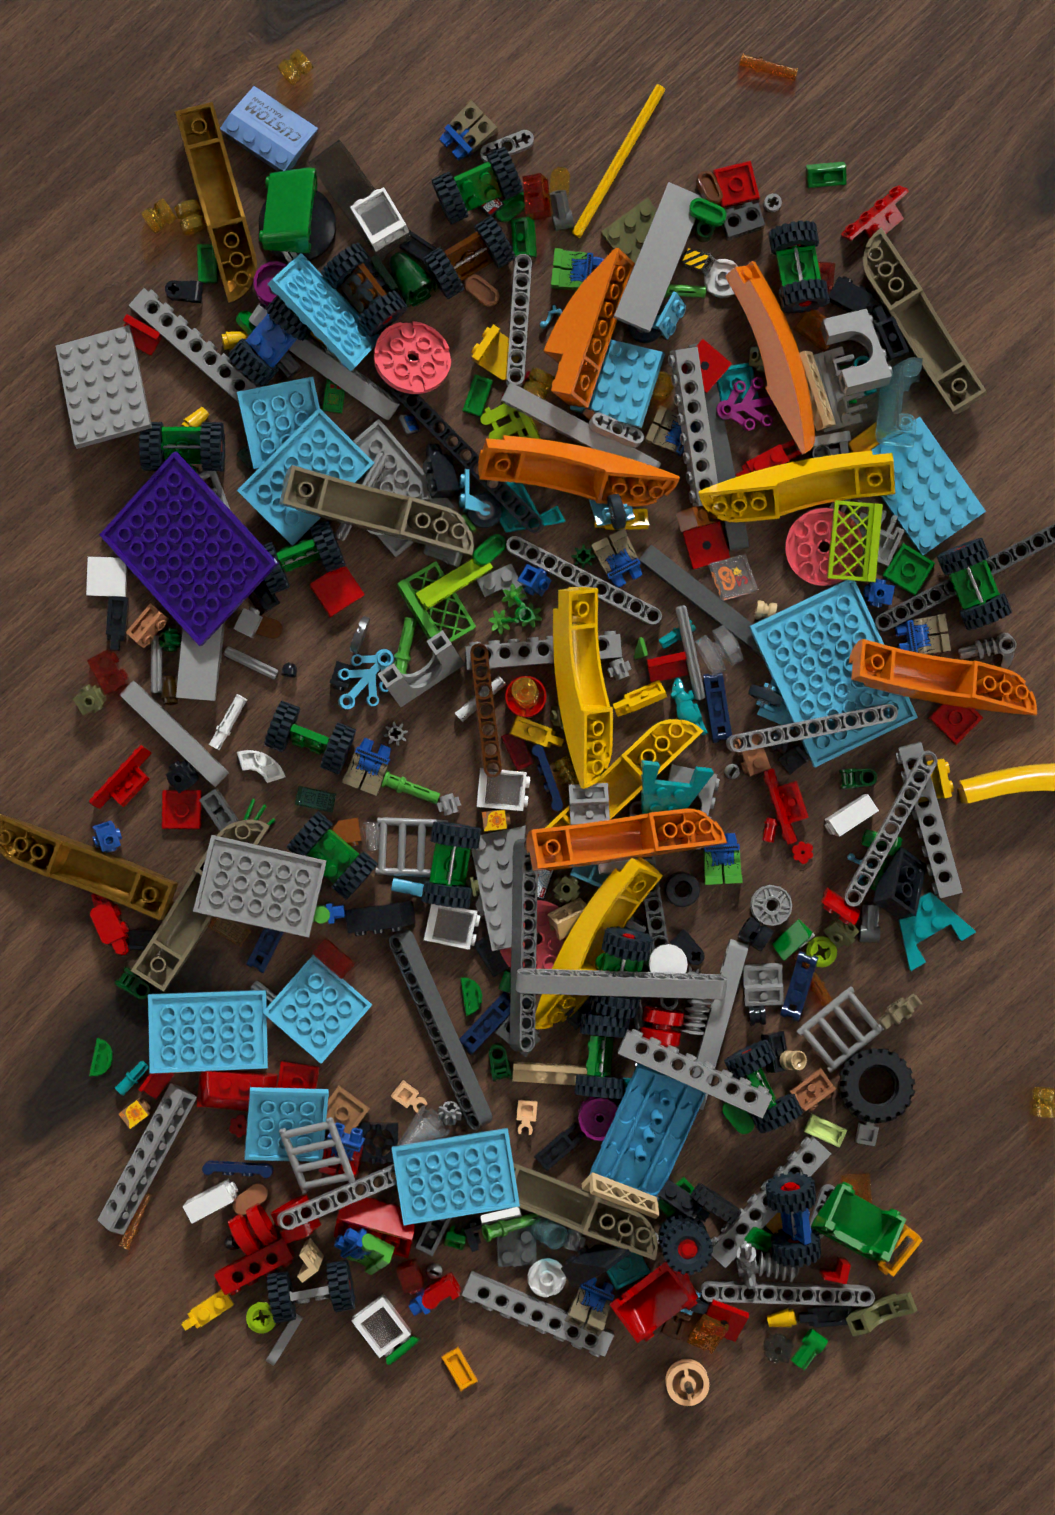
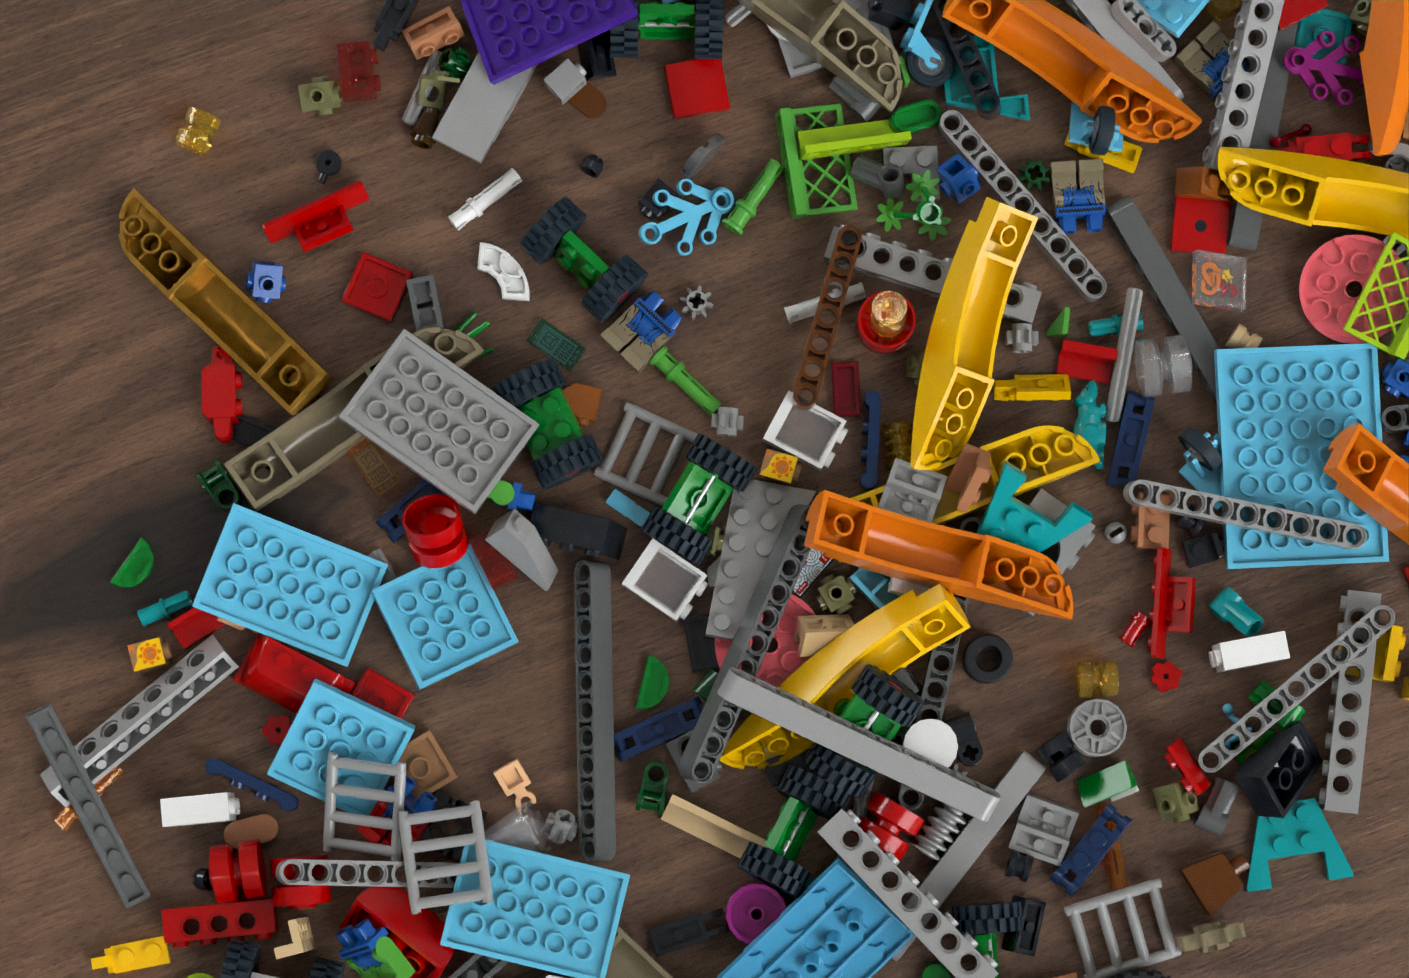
camera: 20 degrees right, 5 degrees down
(19, 755) = (197, 132): none -> clear yellow wheel
(115, 746) = (325, 170): none -> black piece
(137, 1228) = (88, 805): none -> dark grey tile
(163, 655) = (438, 80): none -> olive bracket
(174, 733) = (409, 185): light grey beam -> none
(181, 775) = (396, 241): black brick -> none
(250, 662) = (546, 135): light grey axle -> none
(287, 957) = (435, 531): none -> red wheel
(349, 943) = (523, 546): none -> light grey slope
(371, 834) = (610, 420): clear cone -> none
(398, 1148) = (480, 866): none -> light grey bar
(409, 686) = (795, 237): light grey arch -> none
(480, 600) = (879, 175): none -> dark grey piece
(526, 1112) = (662, 868): light nougat plate -> none
(534, 732) = (878, 375): yellow hinge -> none
(621, 777) = (968, 474): none -> nougat bracket
(725, 854) = (1062, 636): hips -> none
(734, 469) = (1276, 141): none -> dark red hinge
(758, 873) = (1097, 679): none -> clear yellow wheel
(793, 1060) = (1043, 944): tan wheel -> none
(824, 942) = (1147, 808): lime gear -> none
(828, 791) = (1232, 608): none -> teal piece
(856, 778) = (1276, 606): dark green piece -> none
(887, 971) = (1214, 880): none -> reddish brown torso

